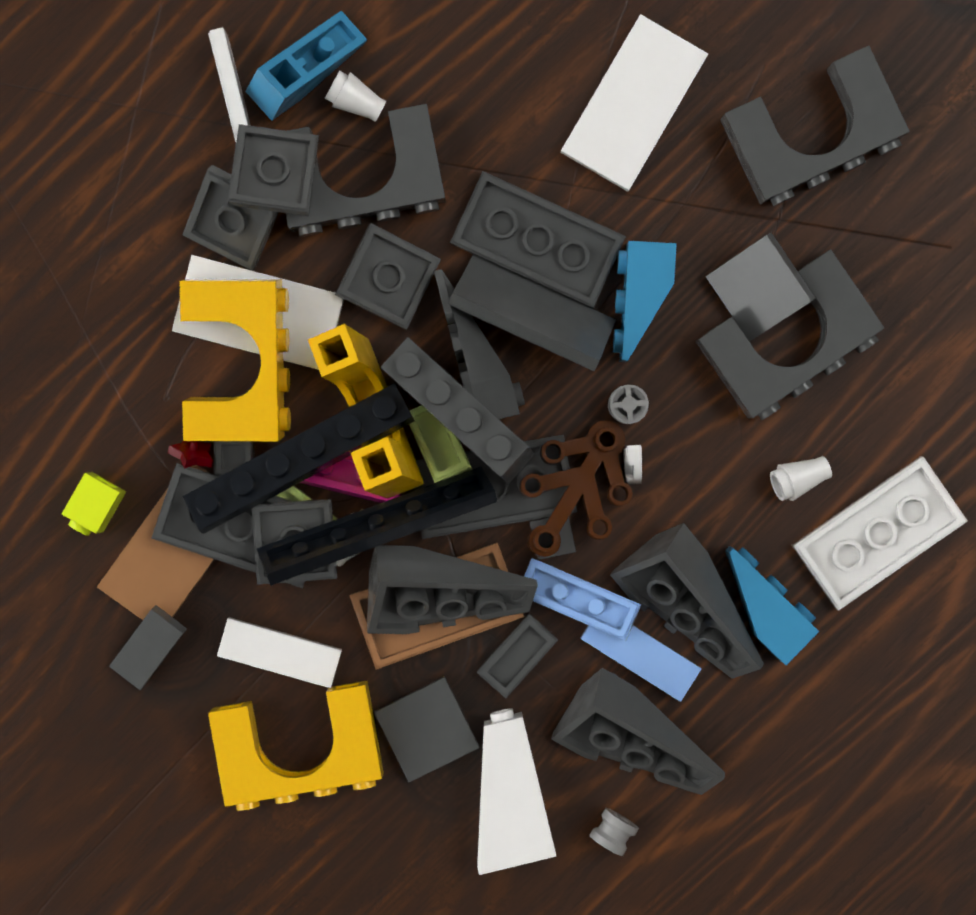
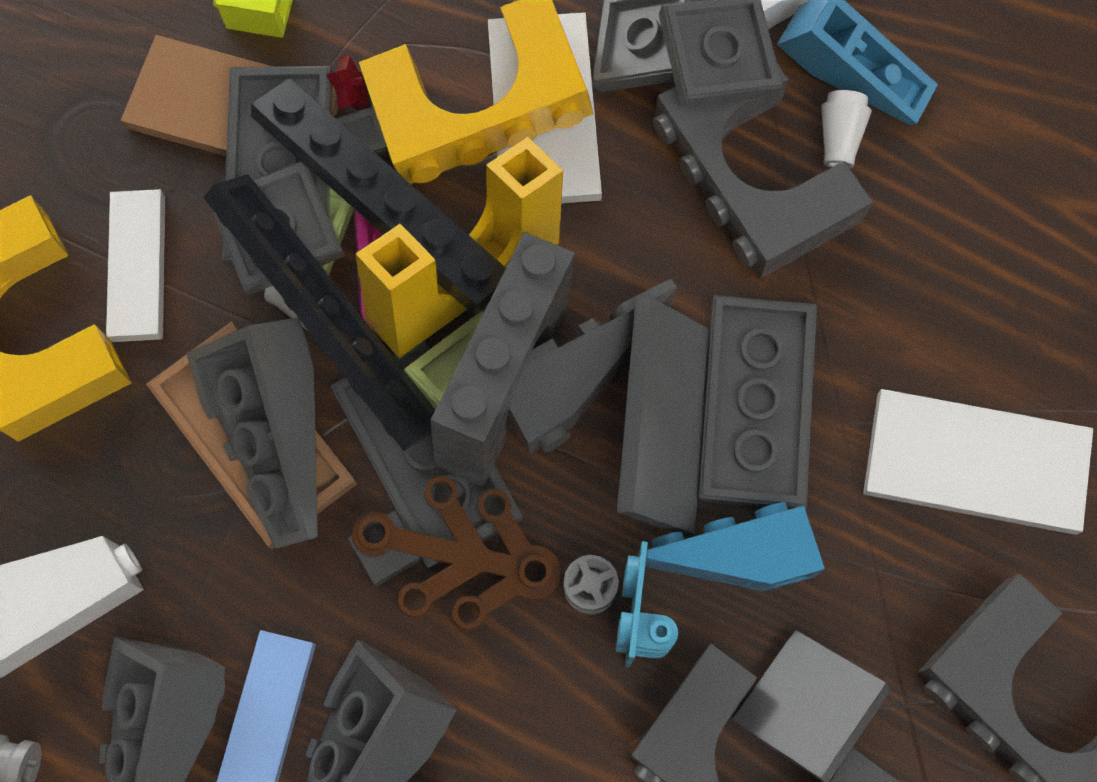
camera: 70 degrees right, 15 degrees down
(148, 647) = (98, 111): dark grey tile -> none
(387, 276) = (643, 235): dark grey tile -> none
(426, 729) = (86, 473): dark grey tile -> none
(517, 655) = (215, 556): dark grey tile -> none
(582, 600) = (311, 613): light blue tile -> none
(632, 464) = (520, 616): white tile -> none
(676, 384) = (640, 632): none -> medium azure hinge

